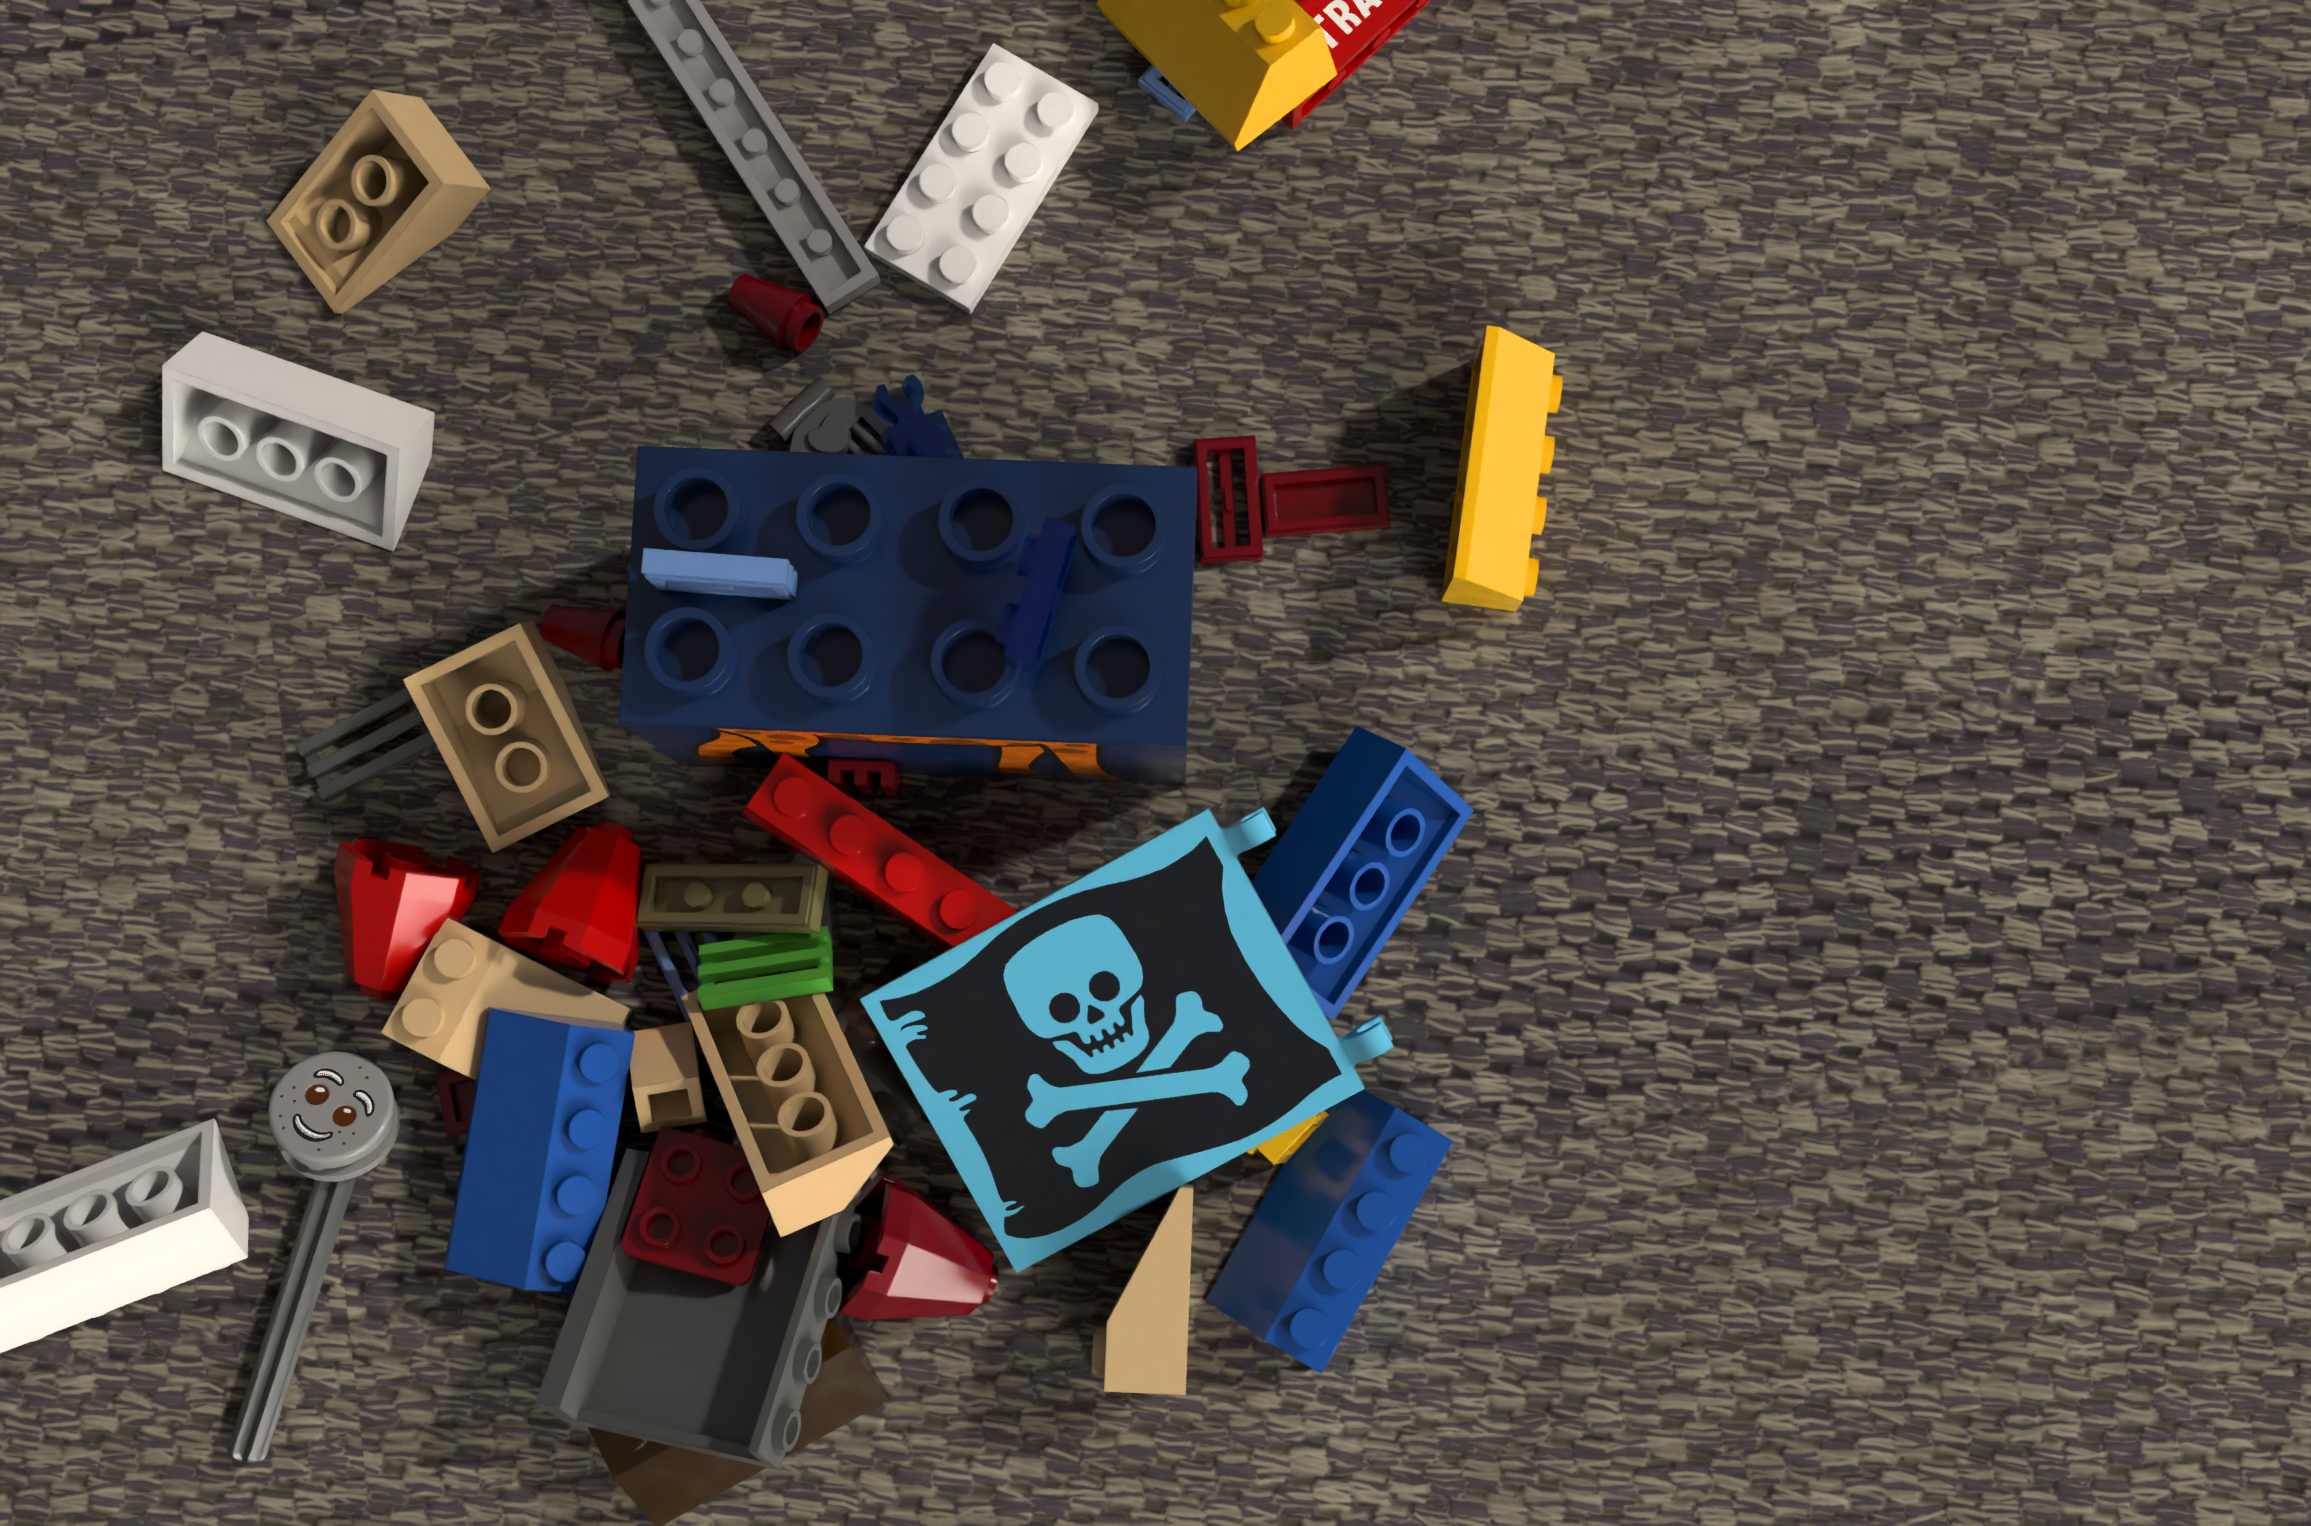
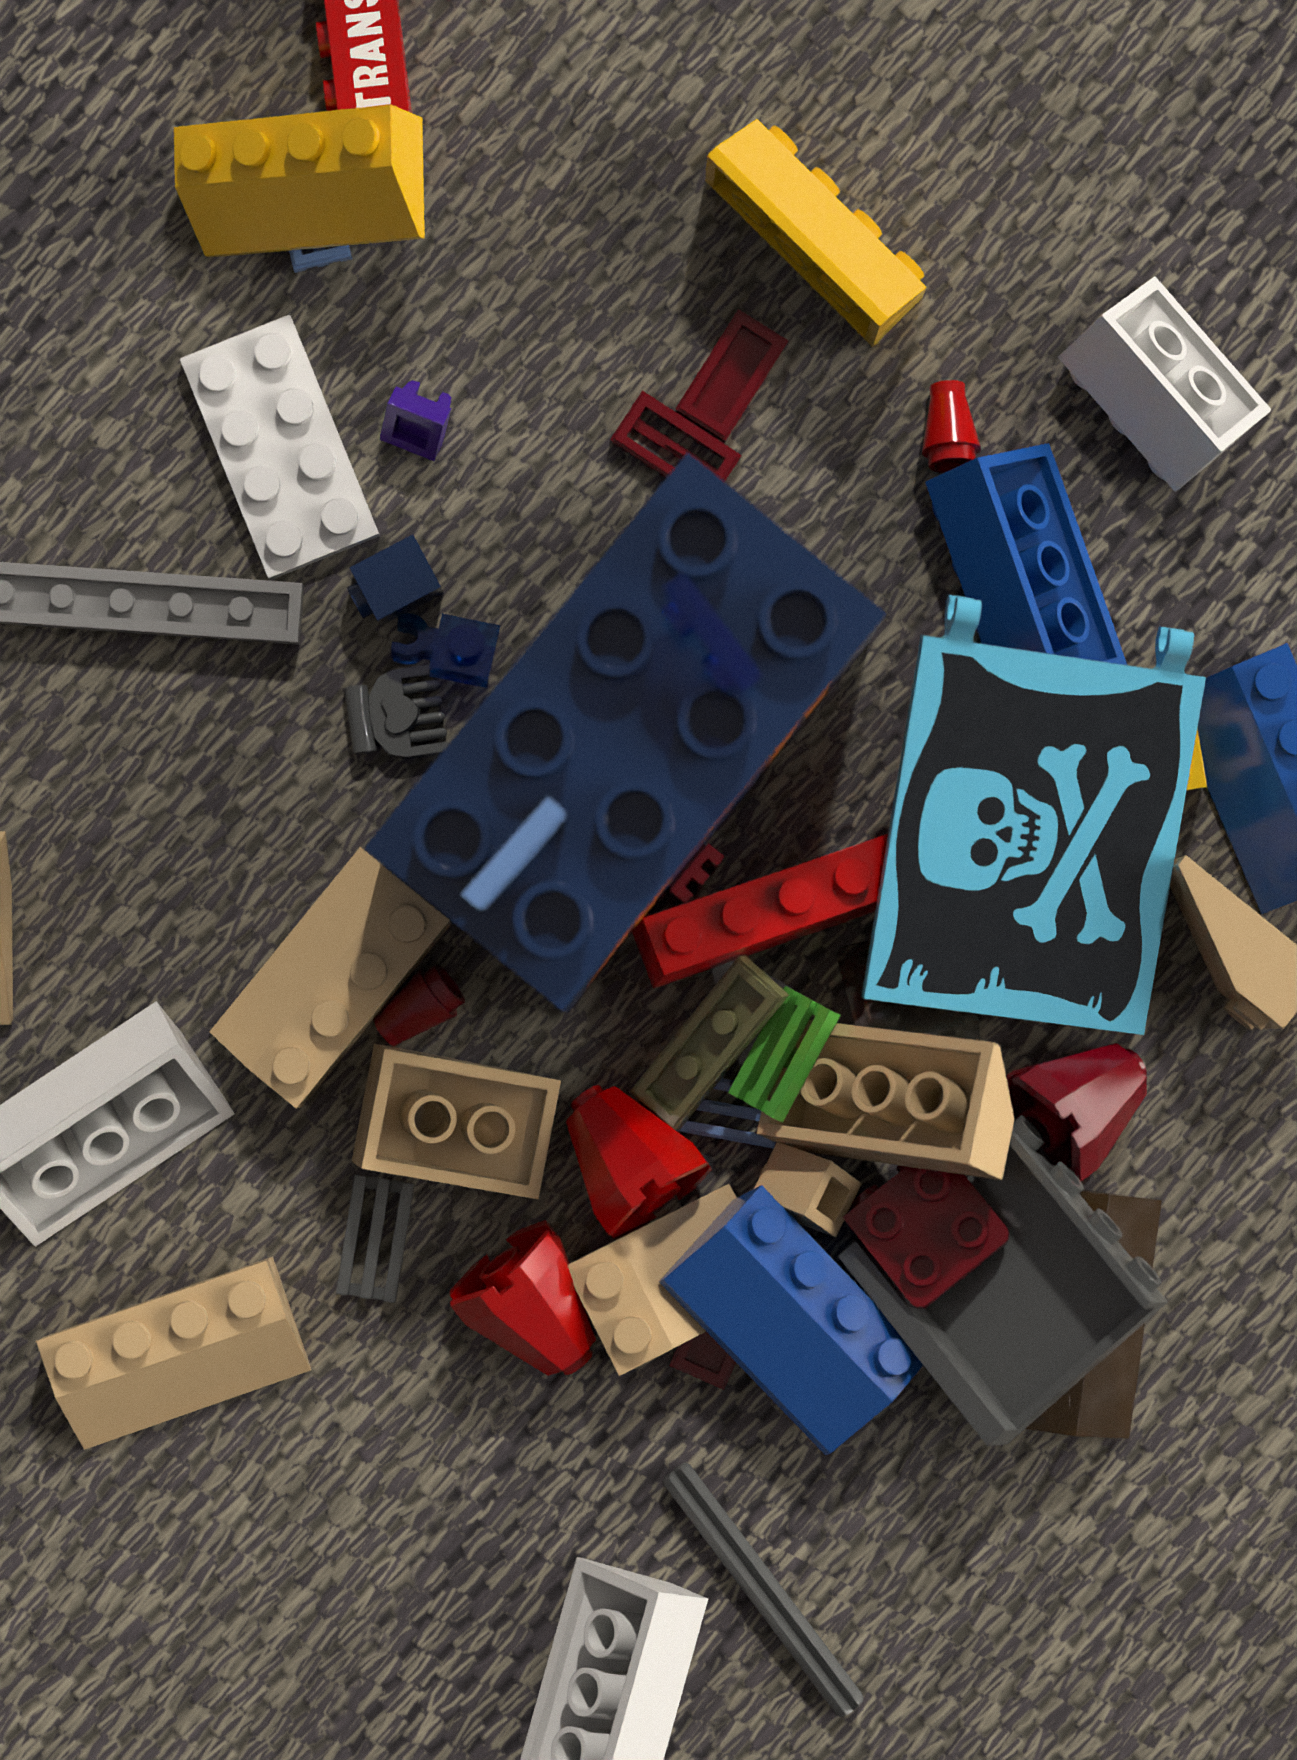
camera: 60 degrees left, 5 degrees up
(146, 646) = (174, 1354): none -> tan slope
(334, 1116) = (650, 1459): light grey head -> none
(529, 544) = (330, 978): none -> tan slope
(778, 312) = (270, 682): dark red cone -> none
(937, 348) = (393, 581): none -> dark blue brick
(1085, 268) = (416, 421): none -> dark purple tile
(1421, 714) = (950, 429): none -> red cone
(1599, 867) = (1163, 383): none -> white slope

